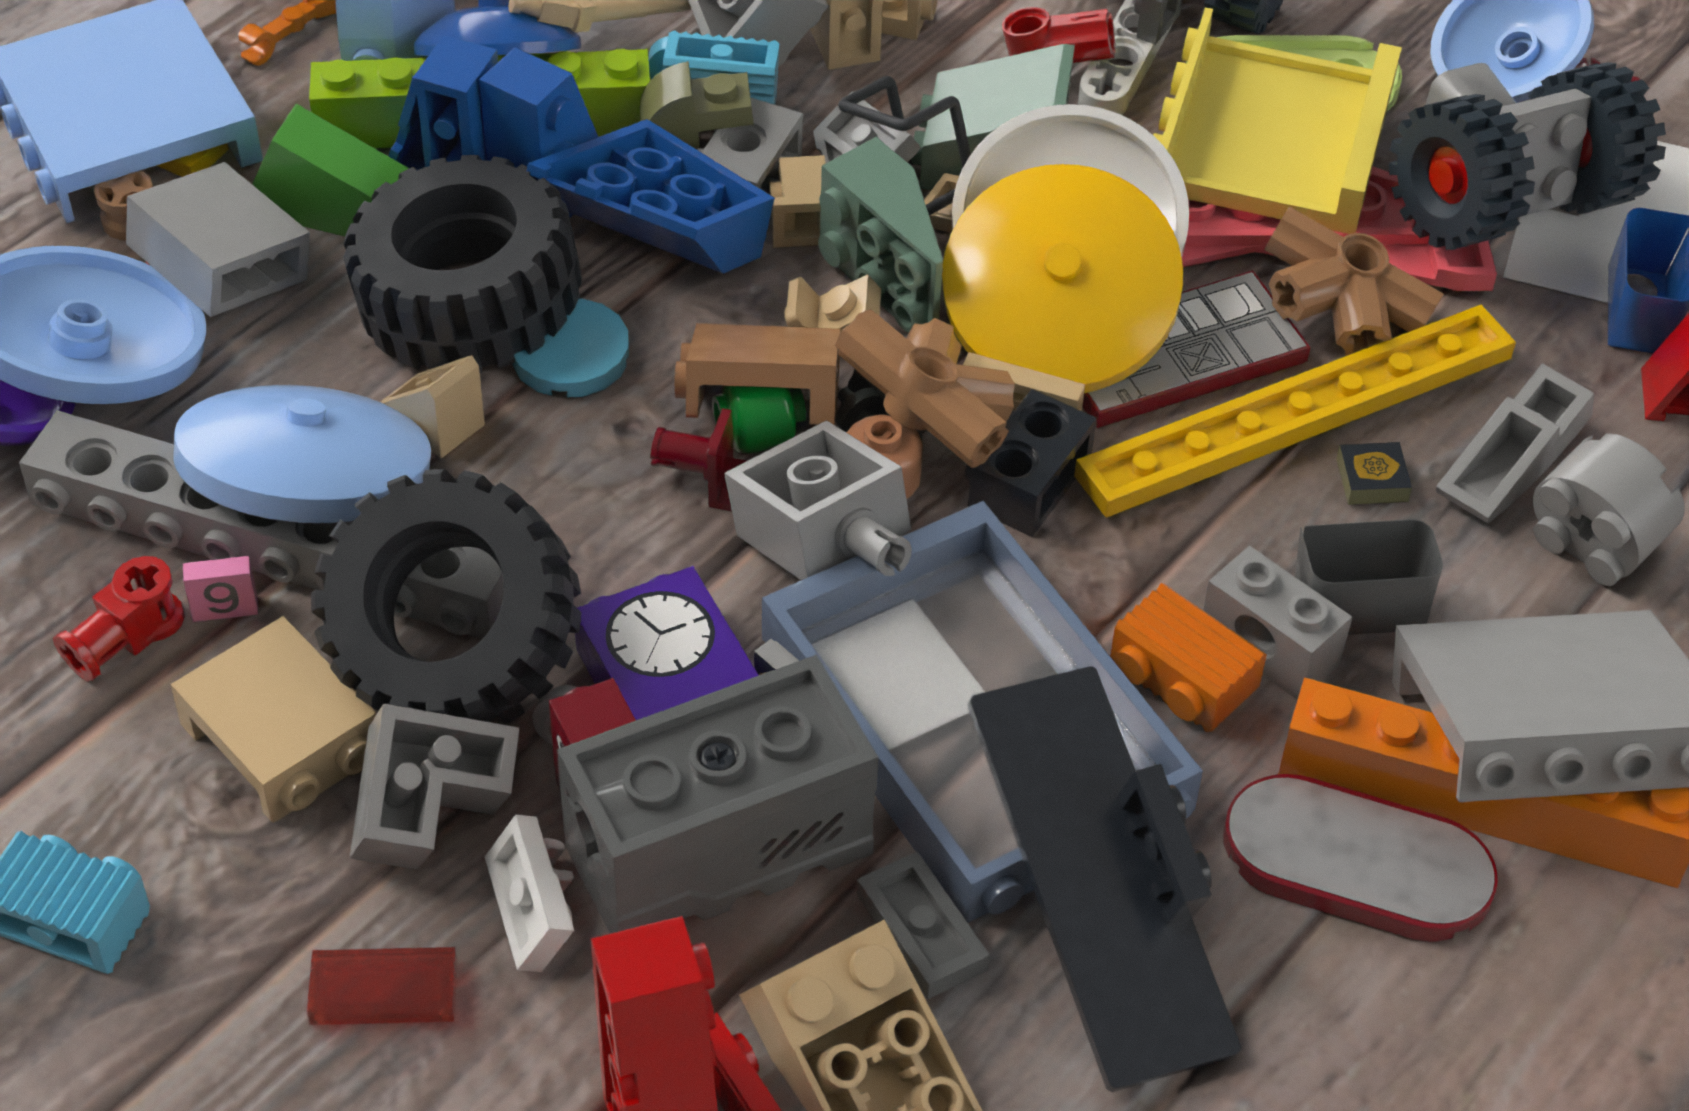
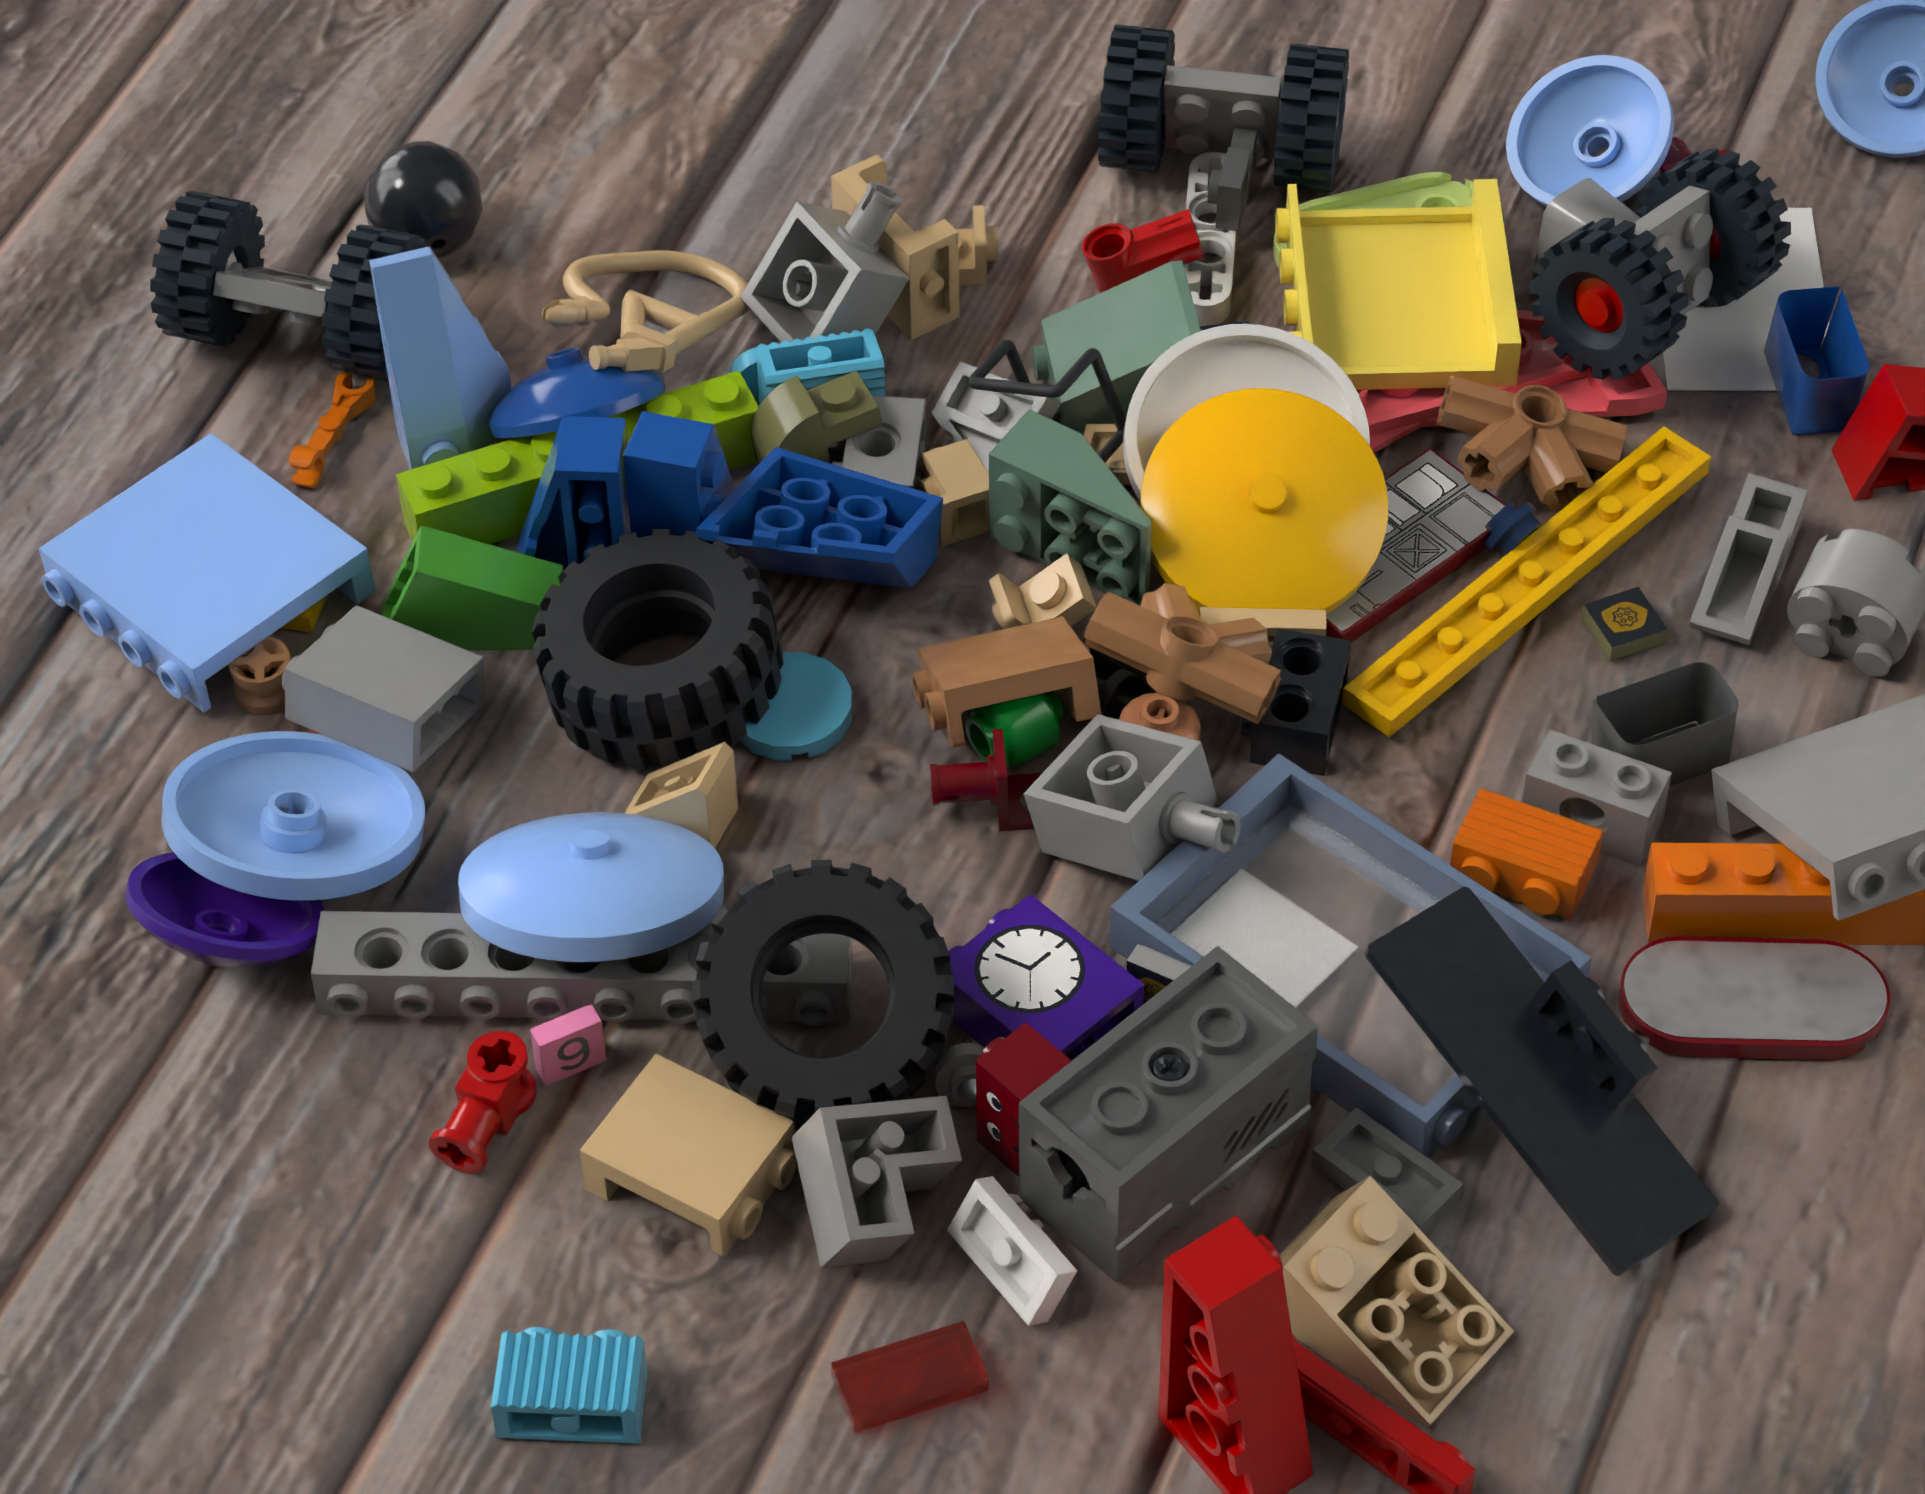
camera: 15 degrees left, 0 degrees up
(1296, 356) = (1511, 527): none -> dark blue plate

